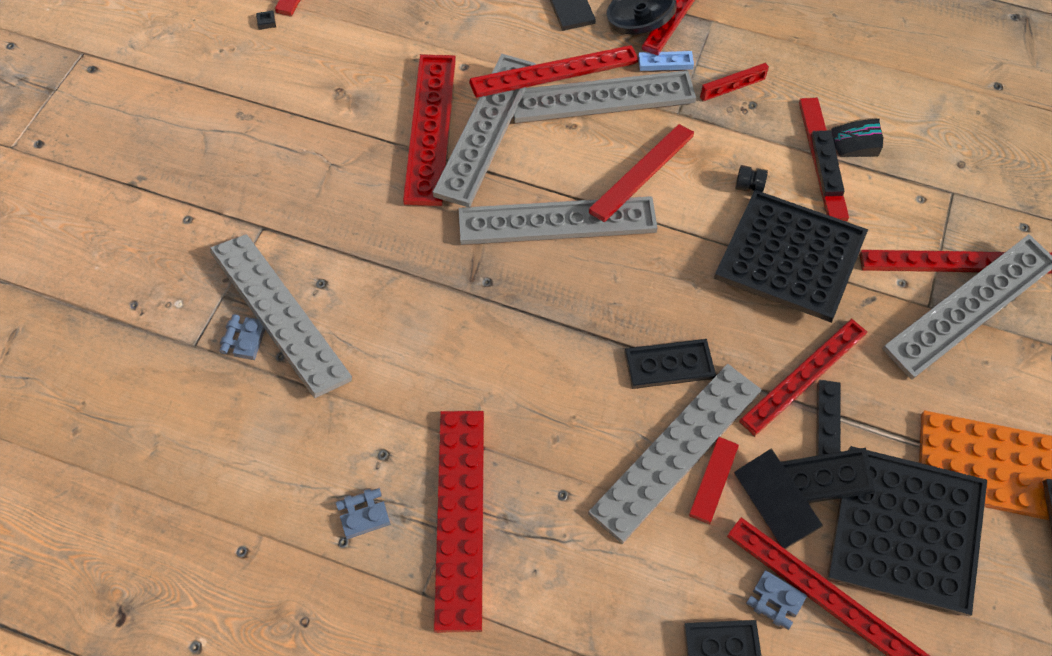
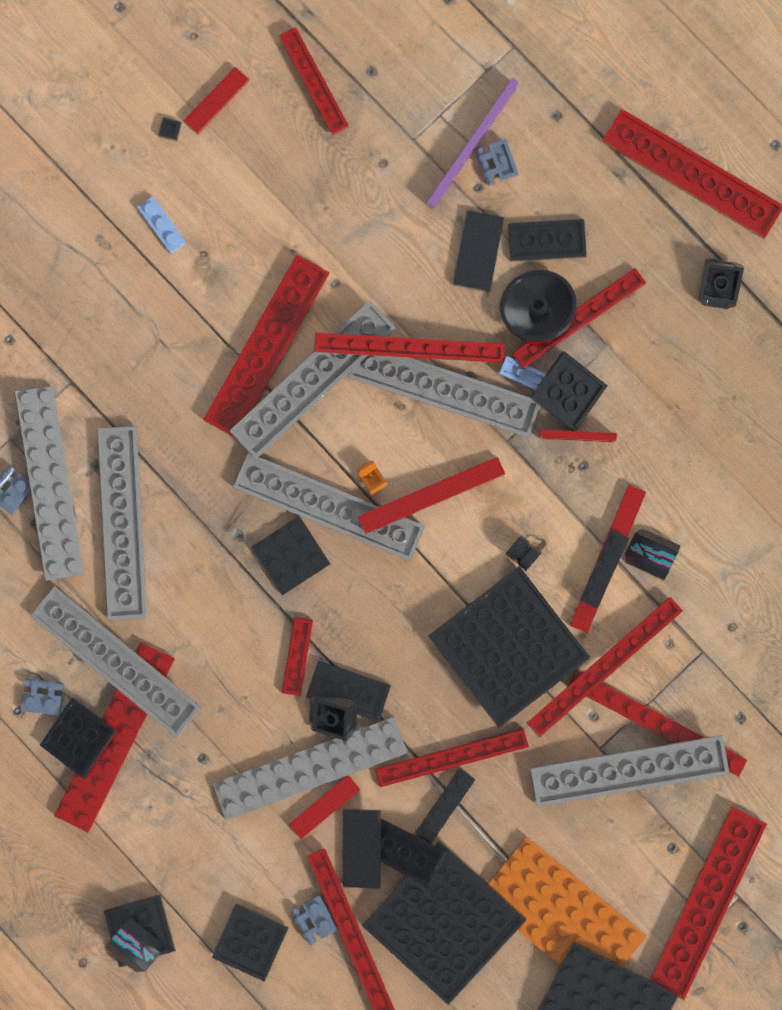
camera: 25 degrees right, 25 degrees up
(291, 83) = (161, 225): none -> light blue plate
(371, 319) = (122, 523): none -> light grey plate
(422, 531) = (78, 738): none -> black plate
(427, 436) = (116, 662): none -> light grey plate
(545, 275) = (290, 555): none -> black plate
(580, 181) = (371, 477): none -> orange bracket
(603, 356) = (297, 656): none -> red tile
(668, 386) = (333, 716): none -> black slope
(705, 52) = (568, 391): none -> black plate
(884, 235) = (604, 667): none -> red plate

